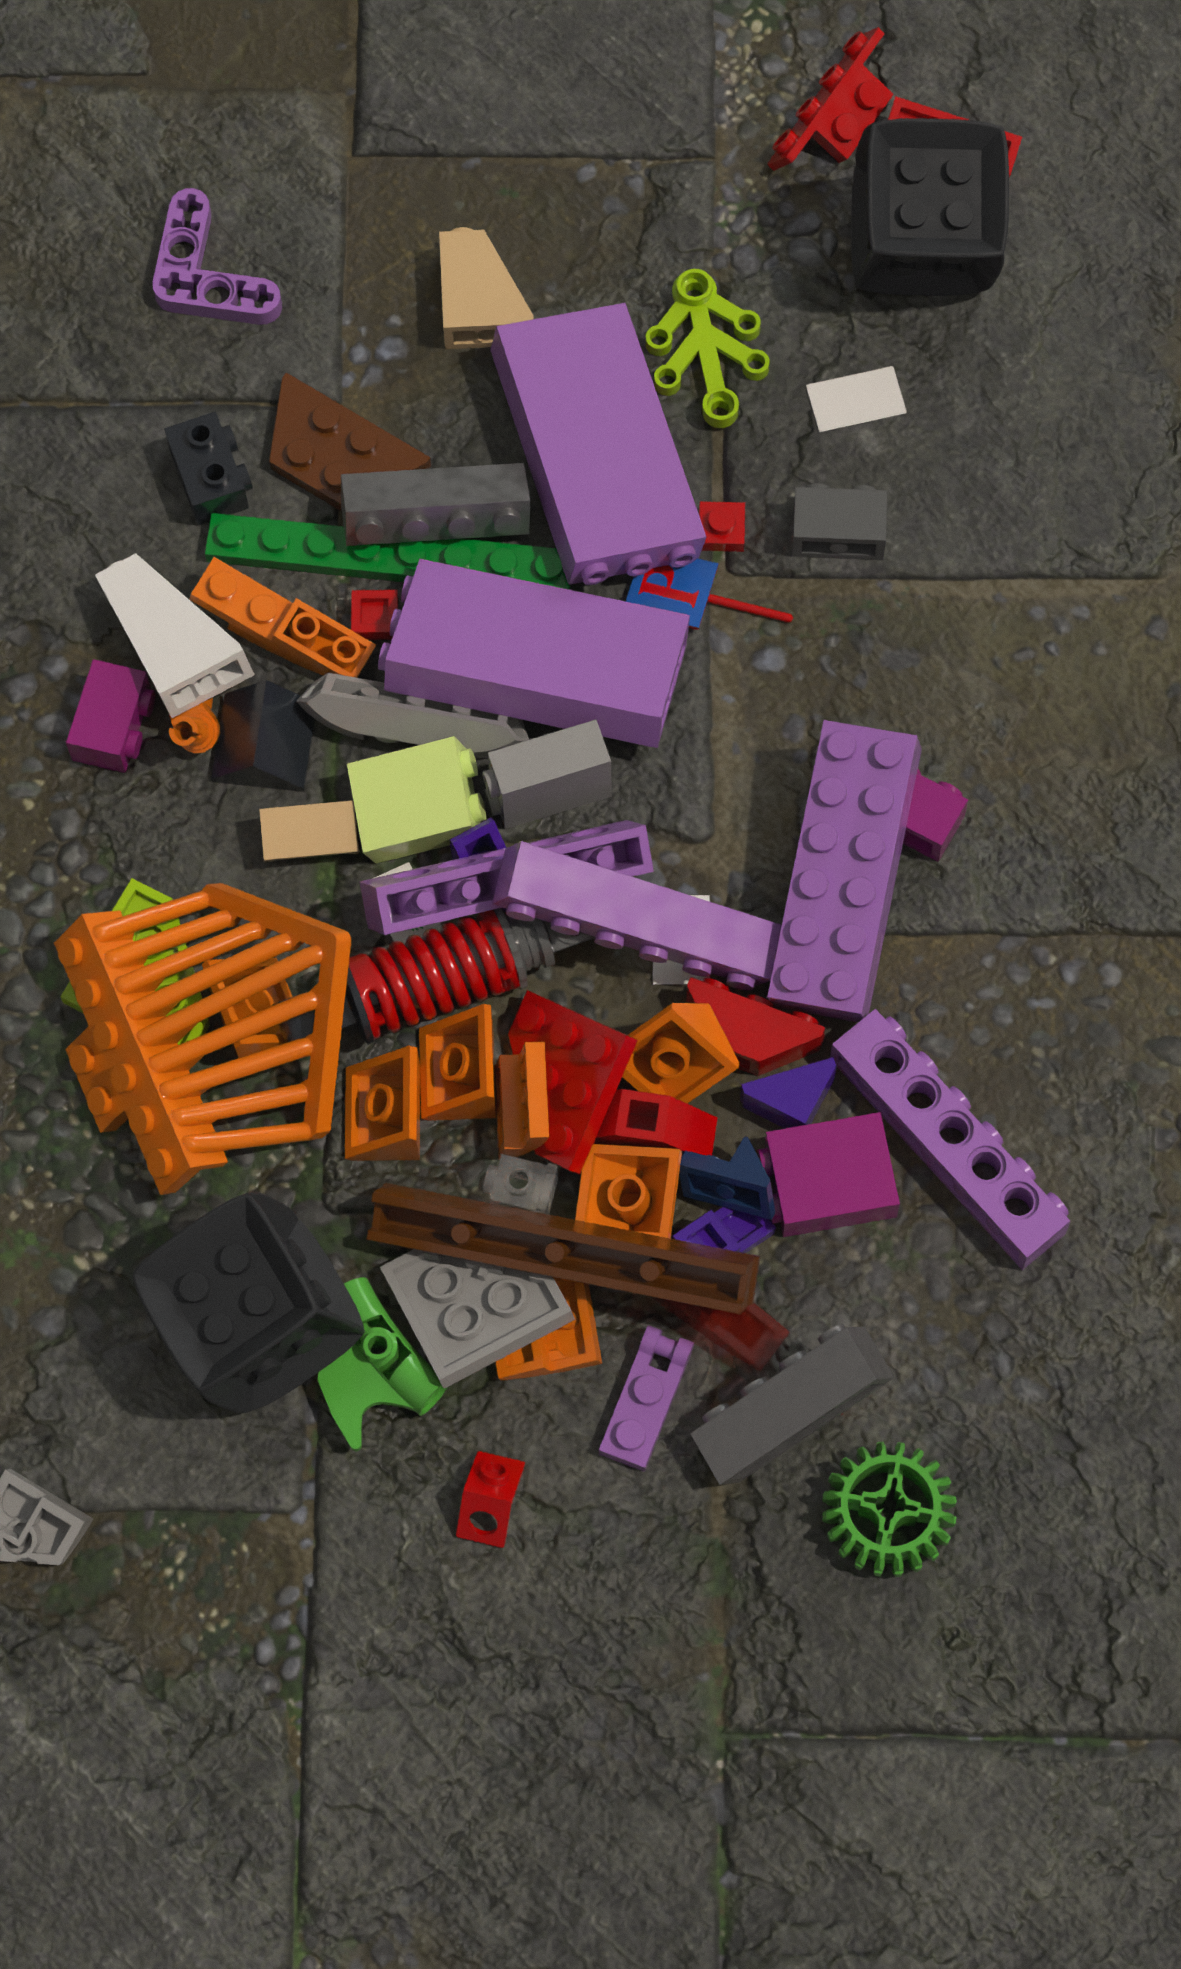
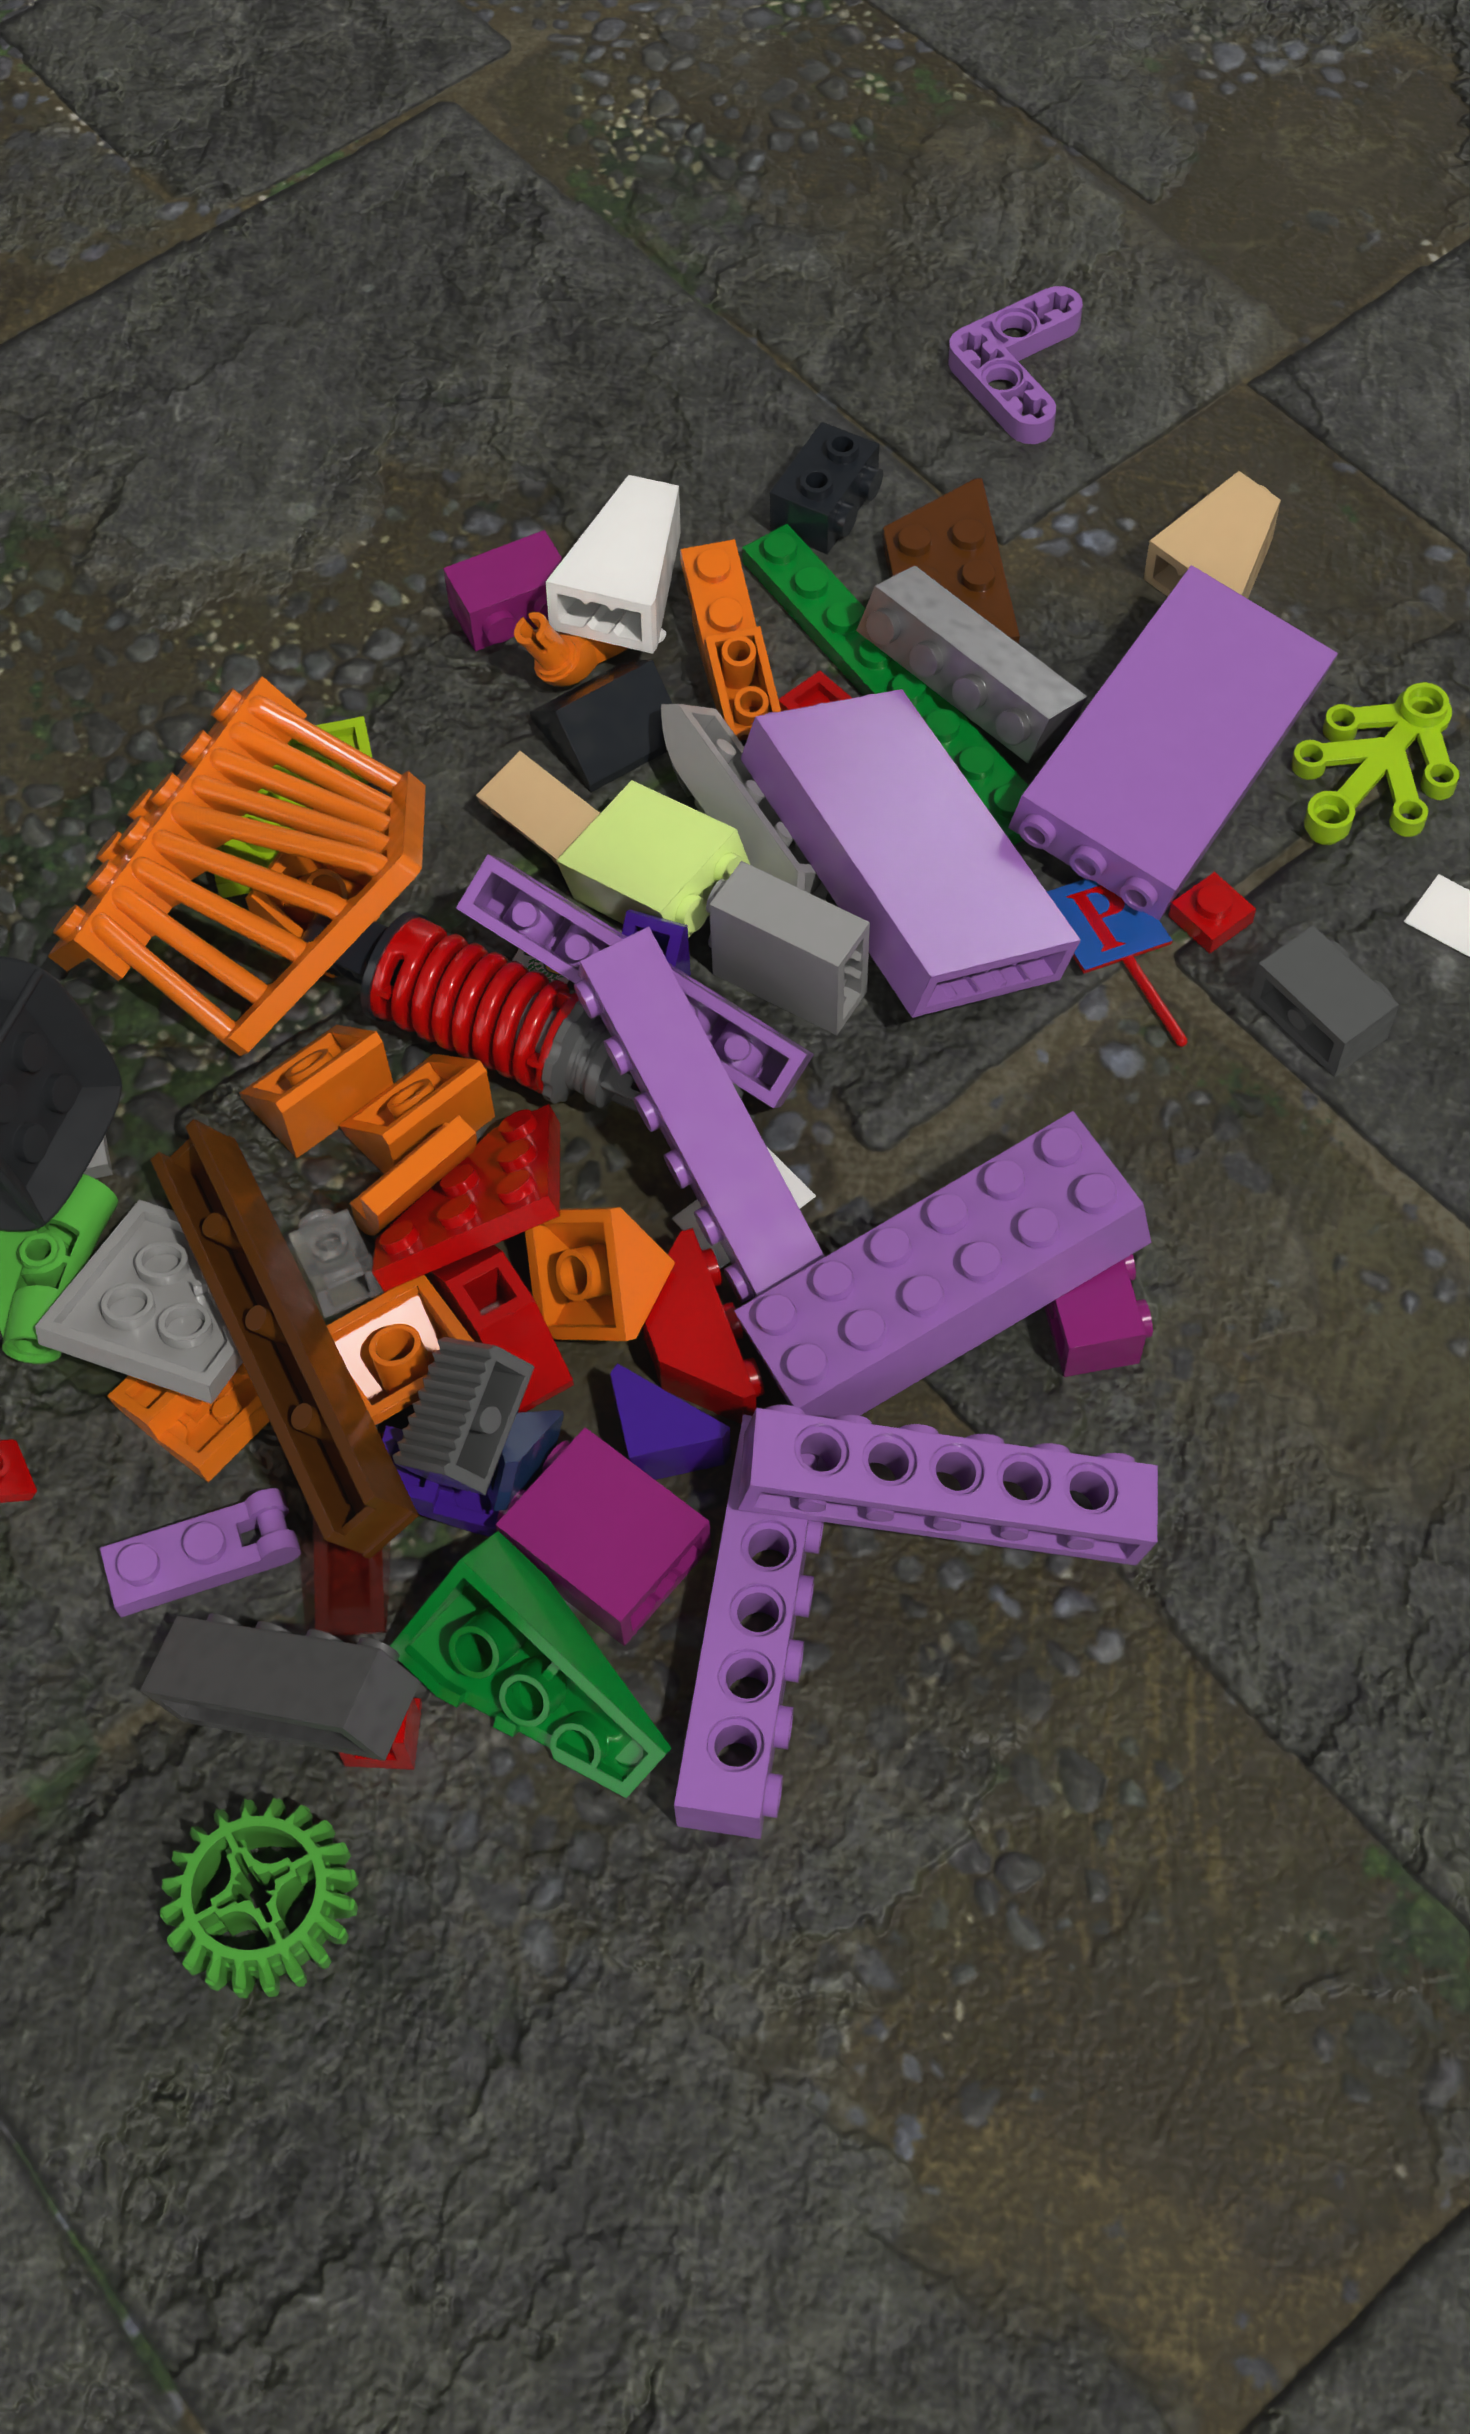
camera: 50 degrees right, 10 degrees down
(718, 1186) = (464, 1414): none -> dark grey brick
(874, 1271) = (520, 1655): none -> green wedge
(895, 1055) = (917, 1503): none -> medium lavender brick

